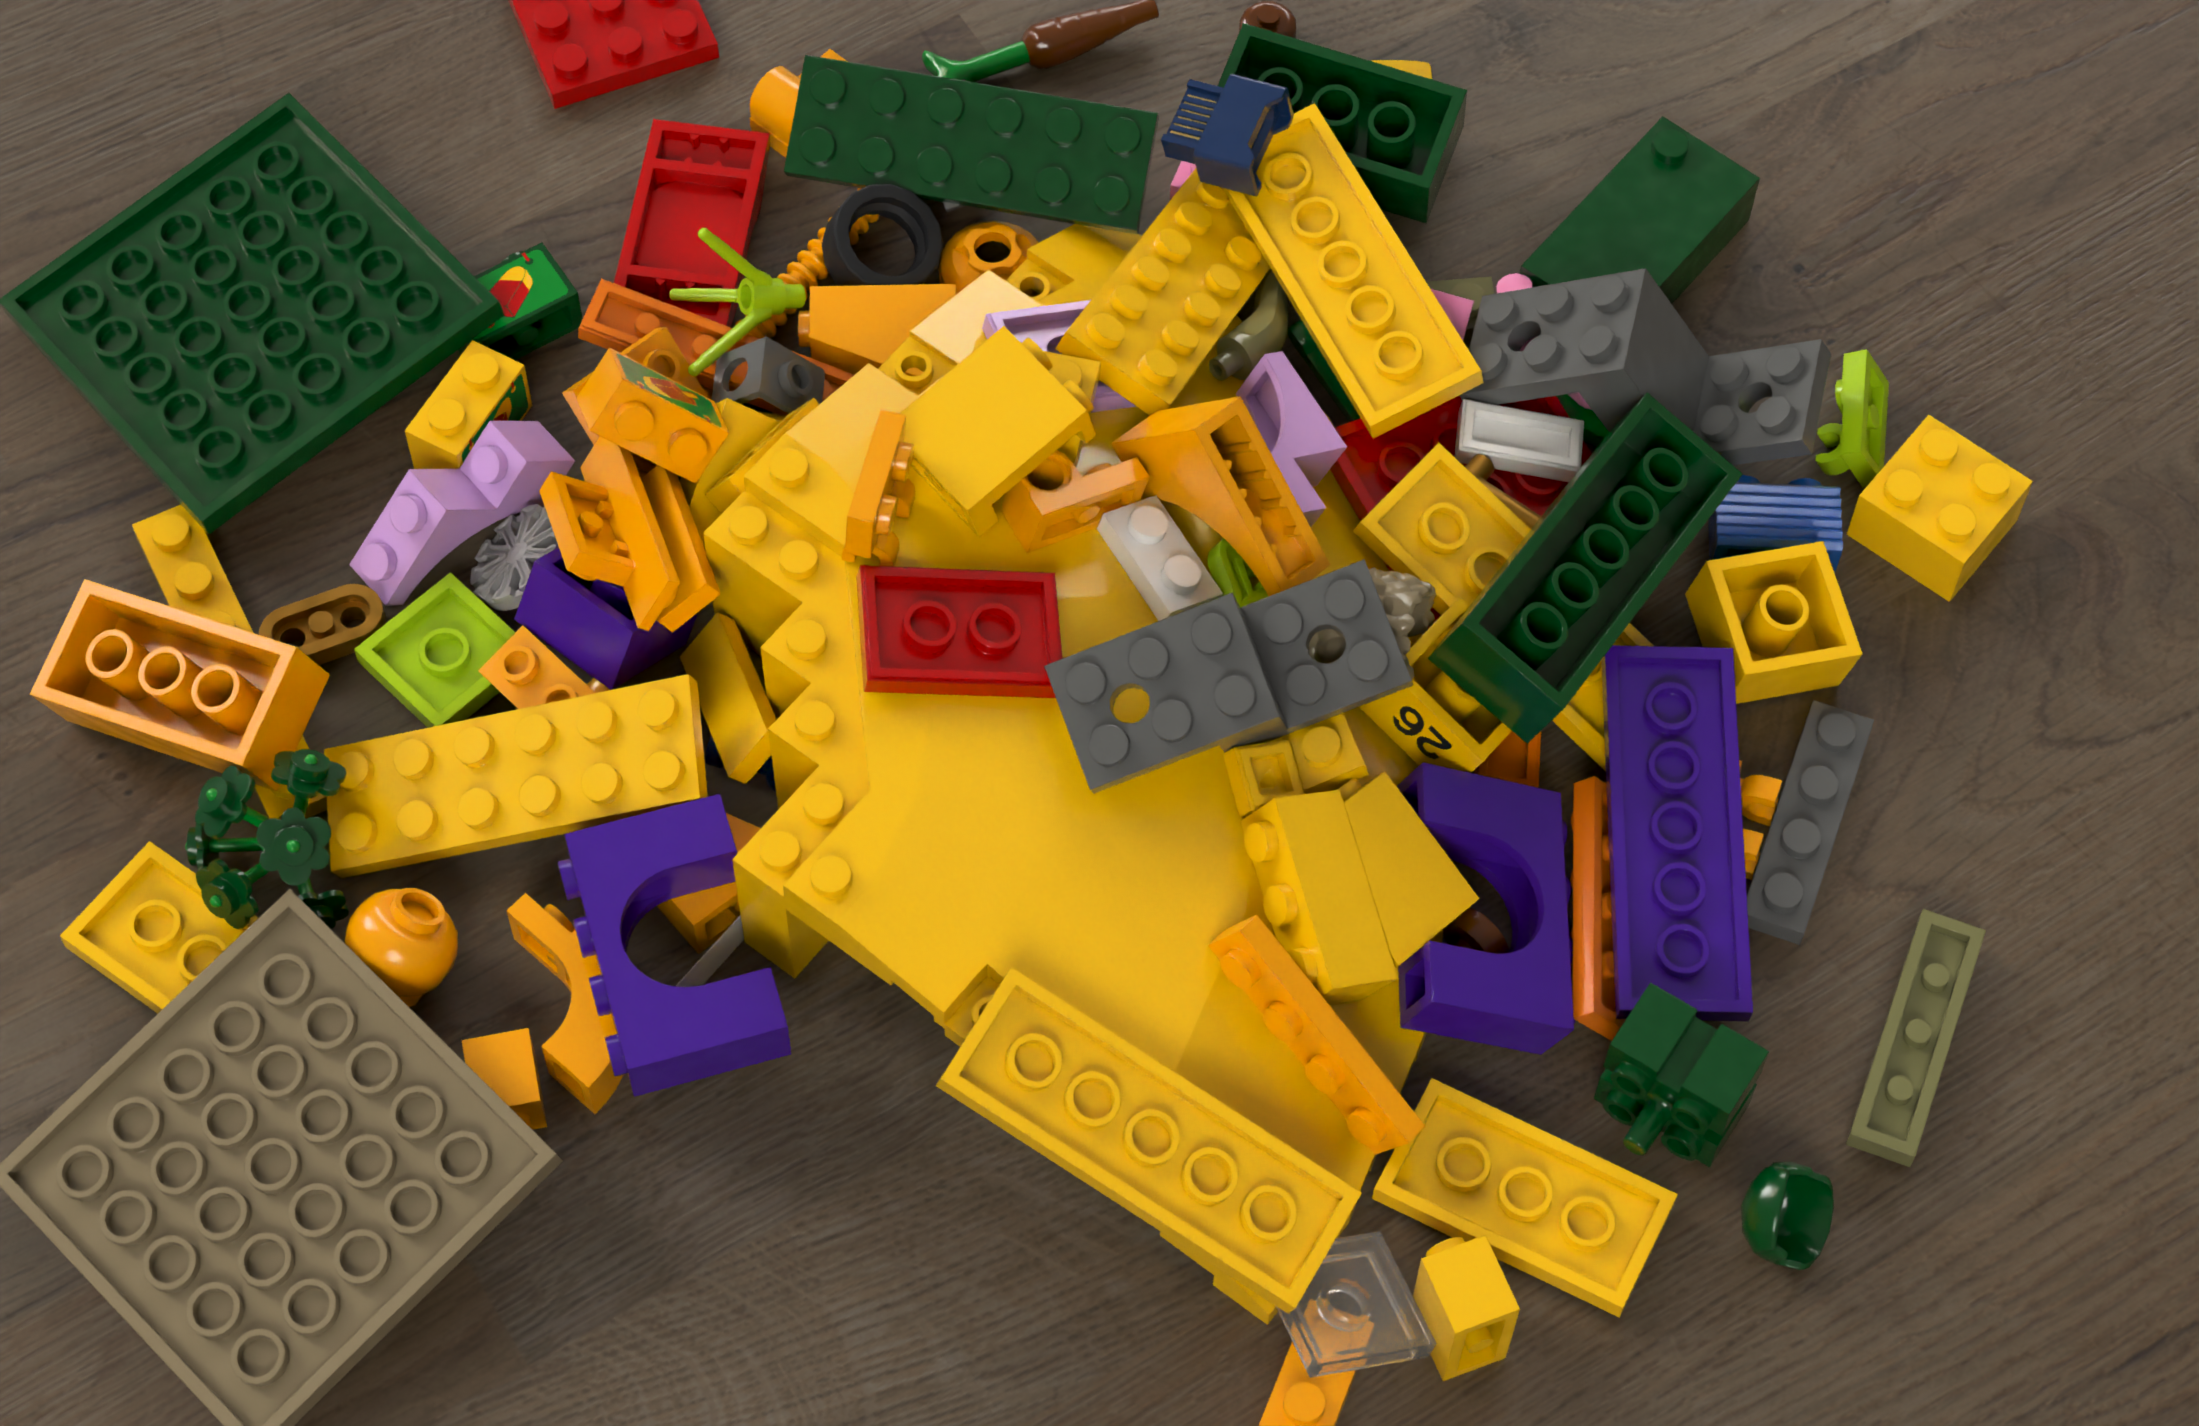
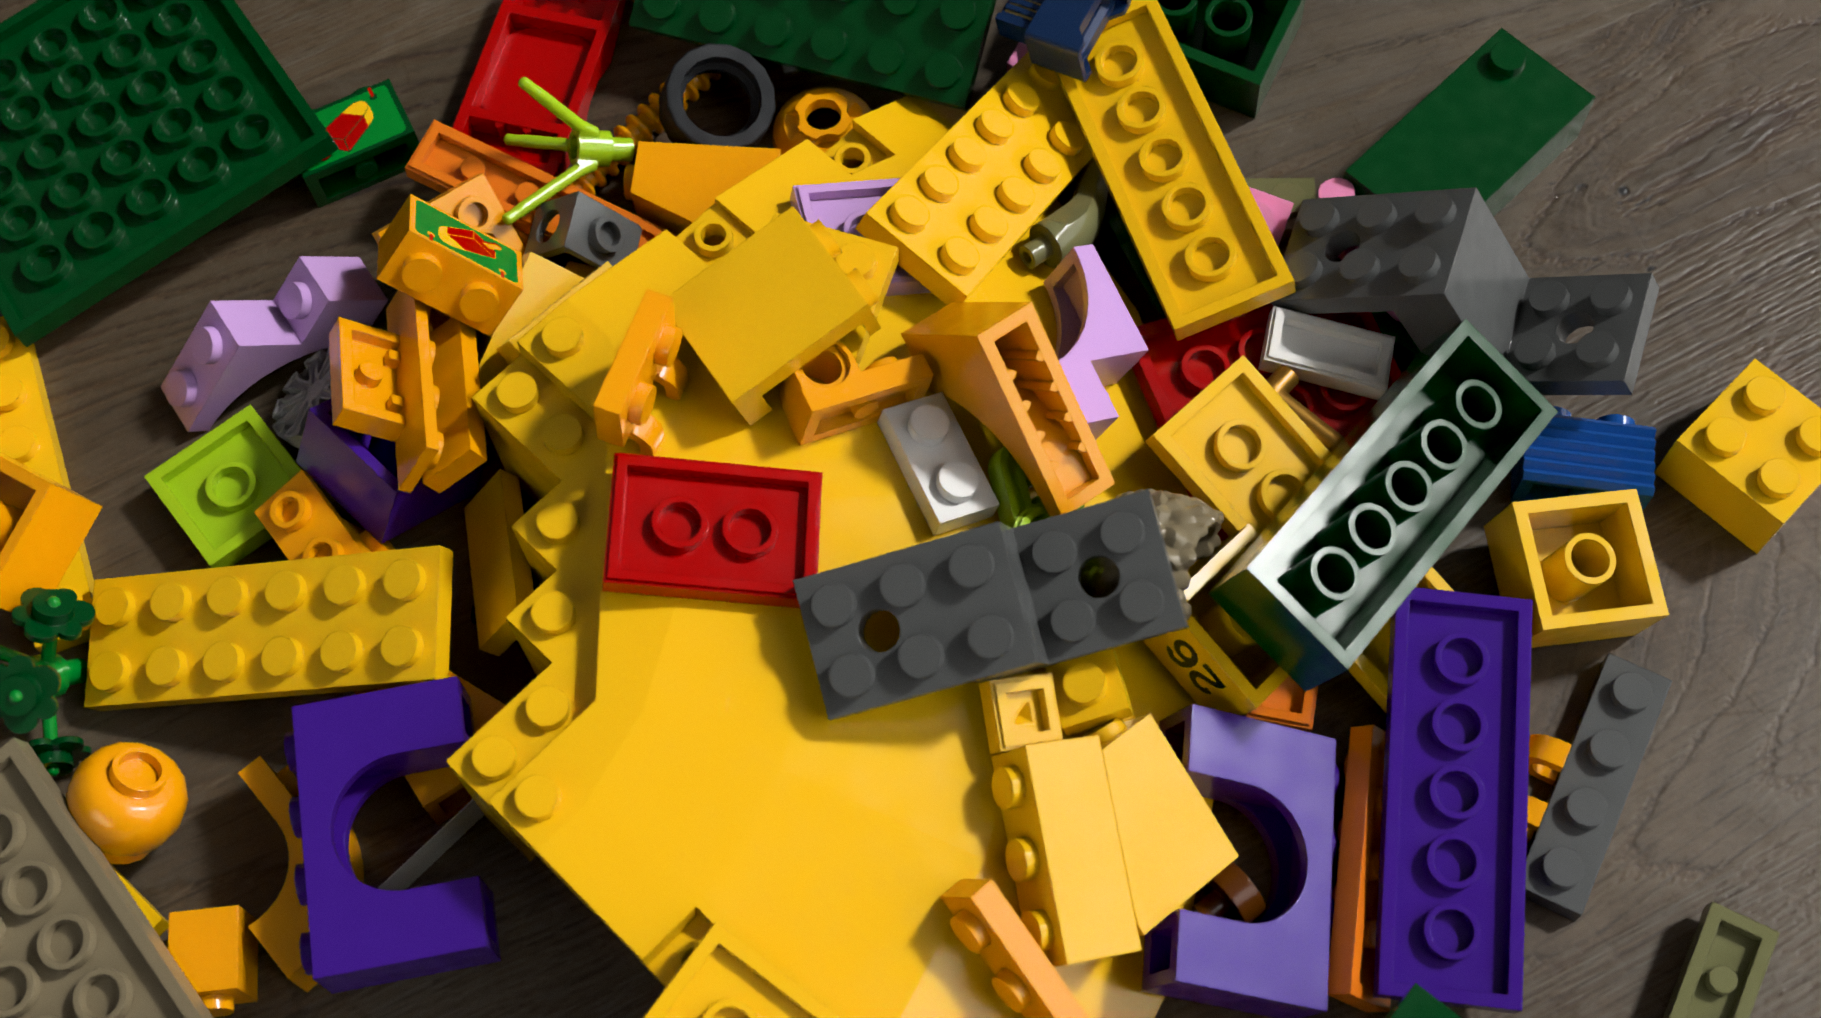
camera: 10 degrees right, 5 degrees up
(322, 622) = (122, 446): pearl gold plate -> none
(473, 392) = (299, 223): yellow brick -> none
(1862, 435) = (1683, 335): lime plate -> none

